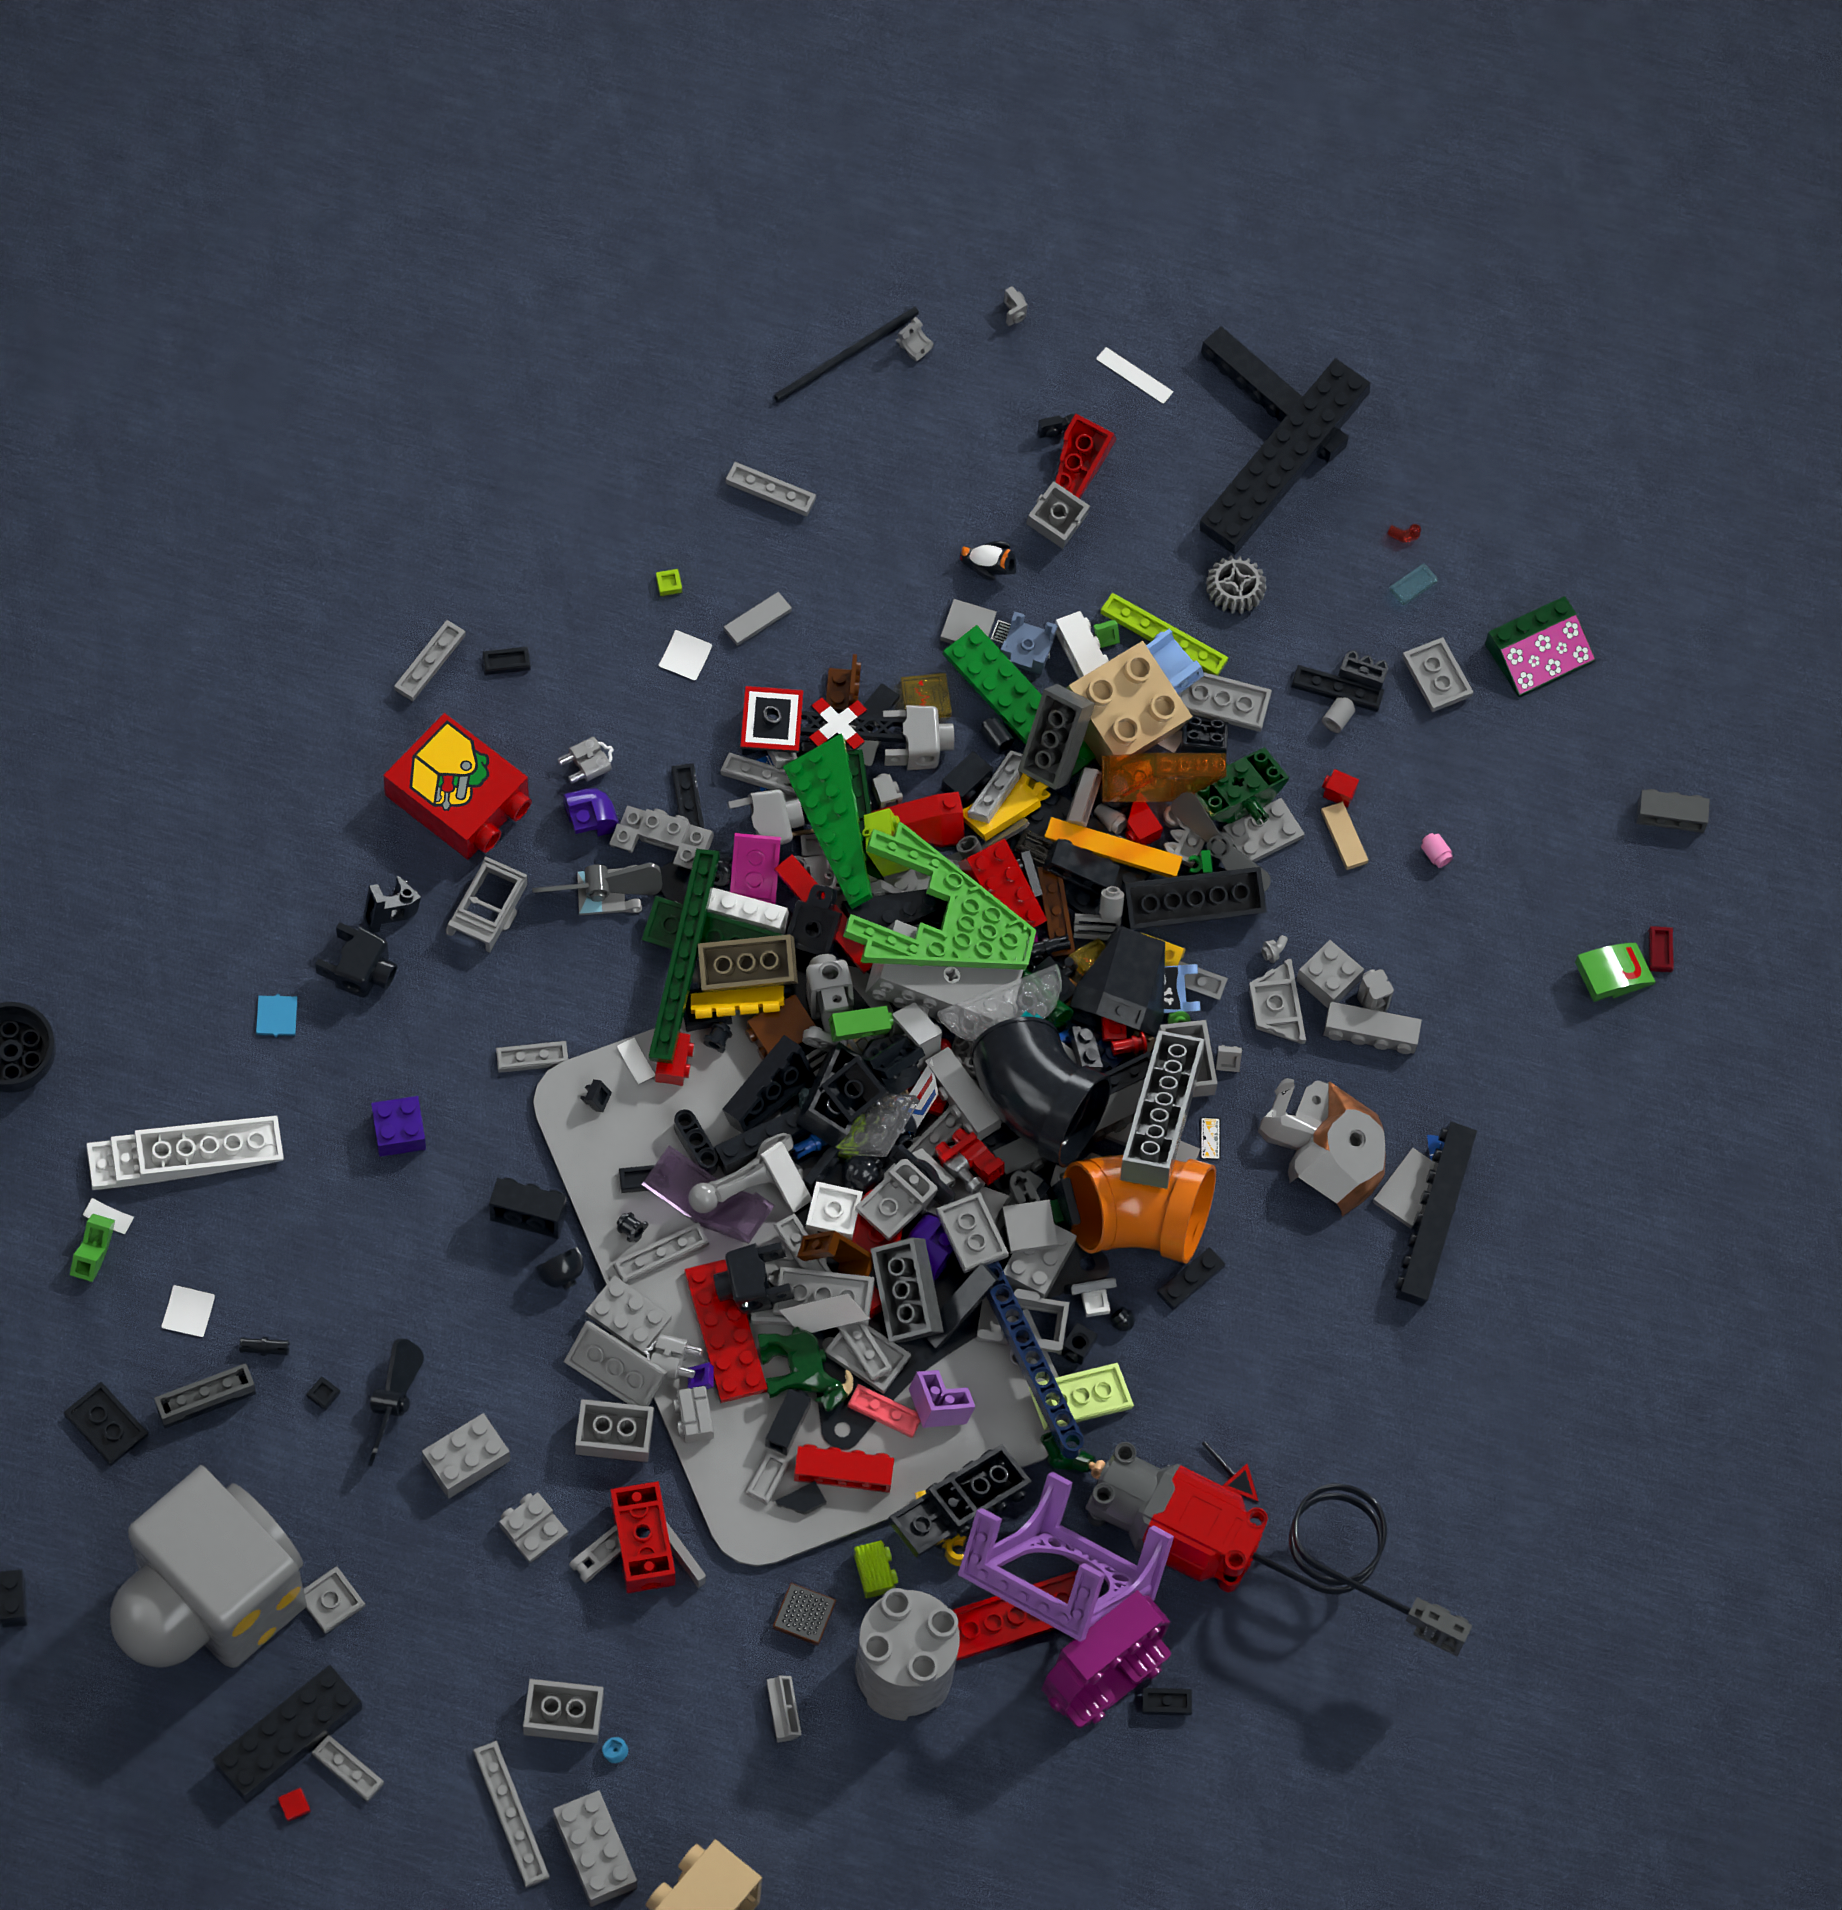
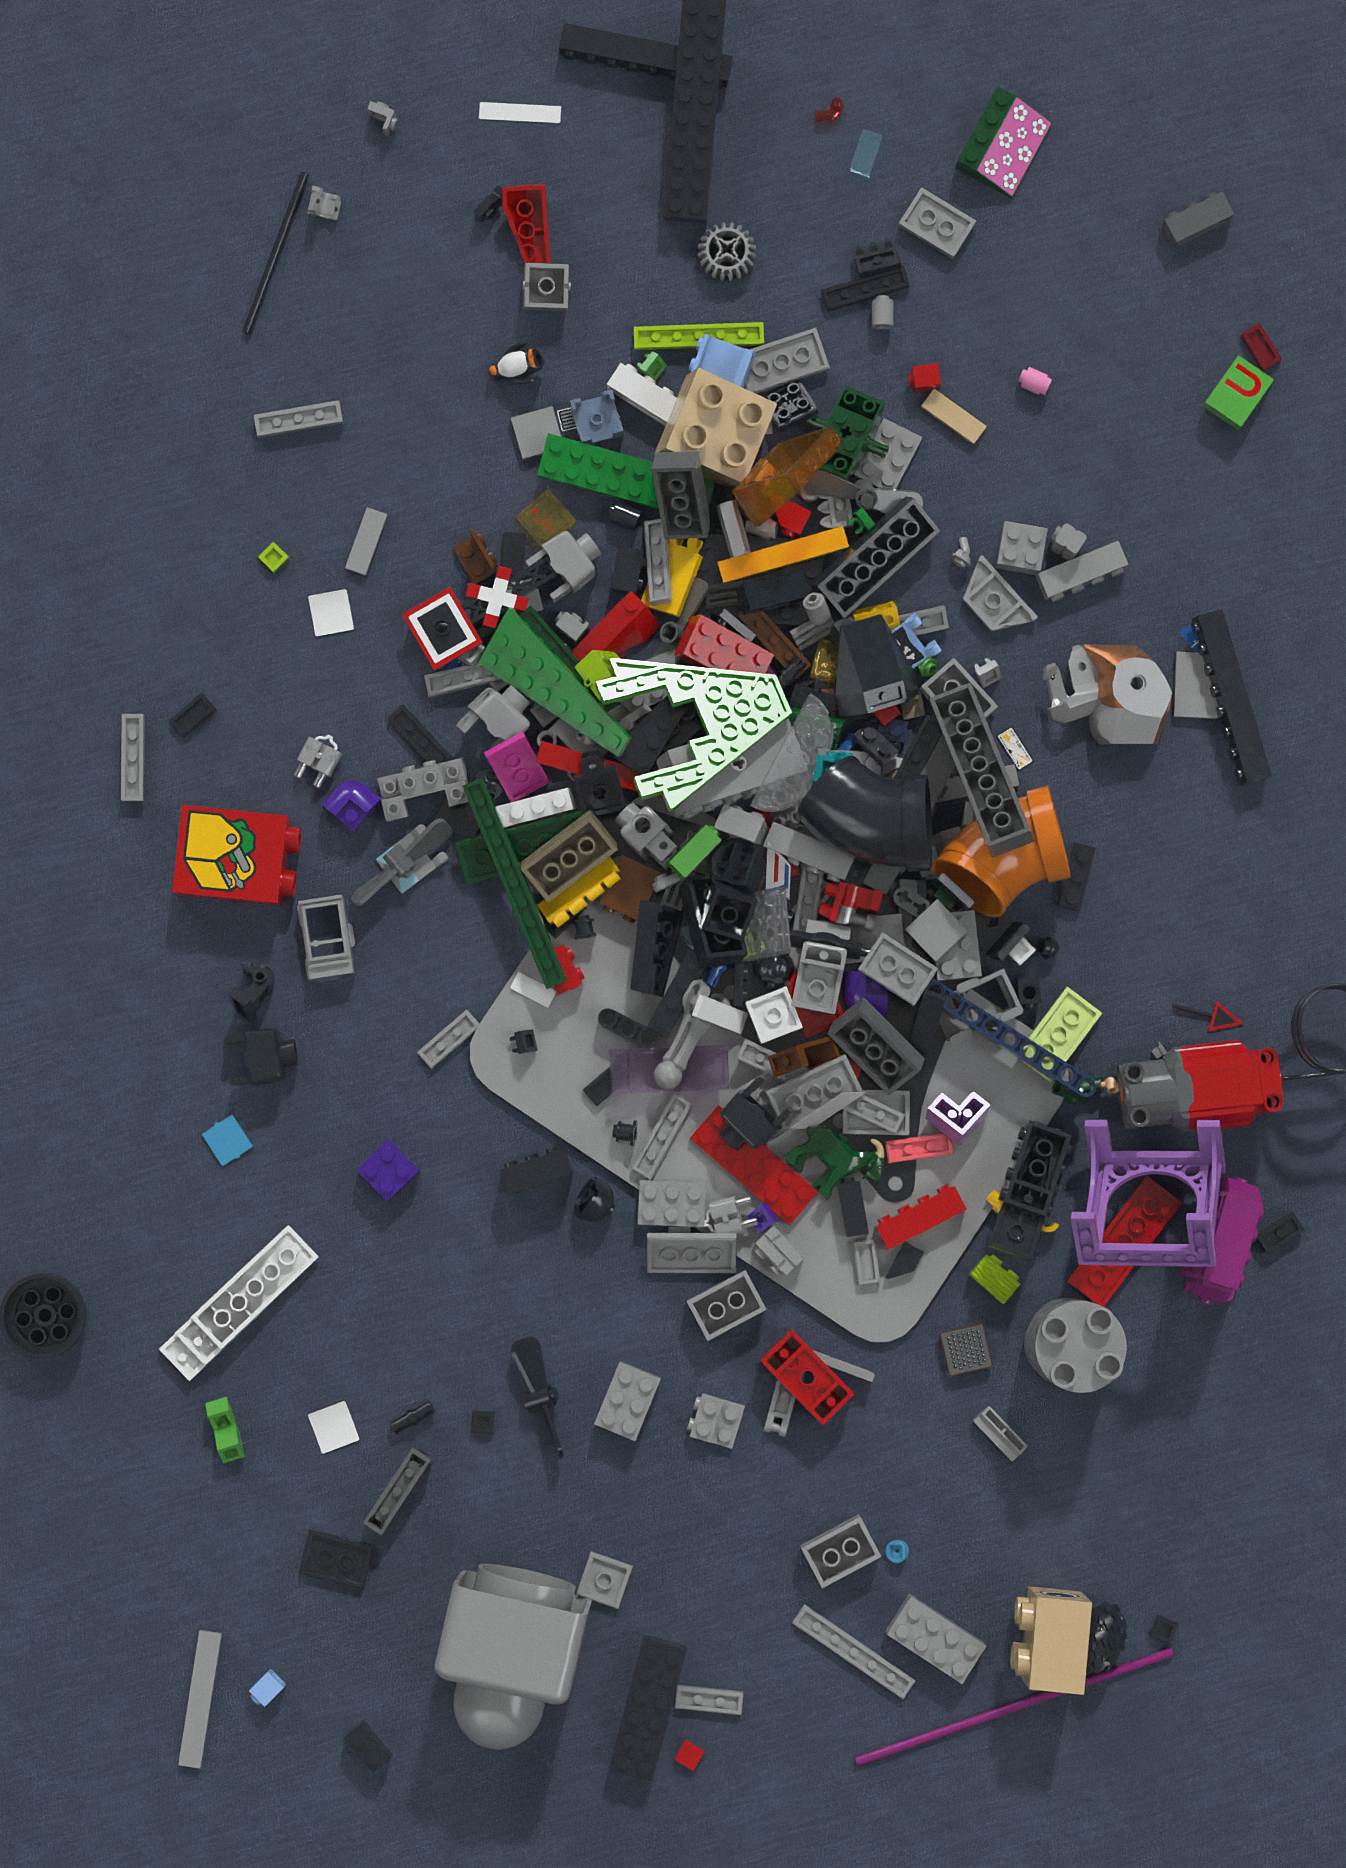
camera: 25 degrees left, 20 degrees up
(122, 1220) = (216, 1391): white sticker -> none
(1133, 1045) = (907, 716): red pin -> none

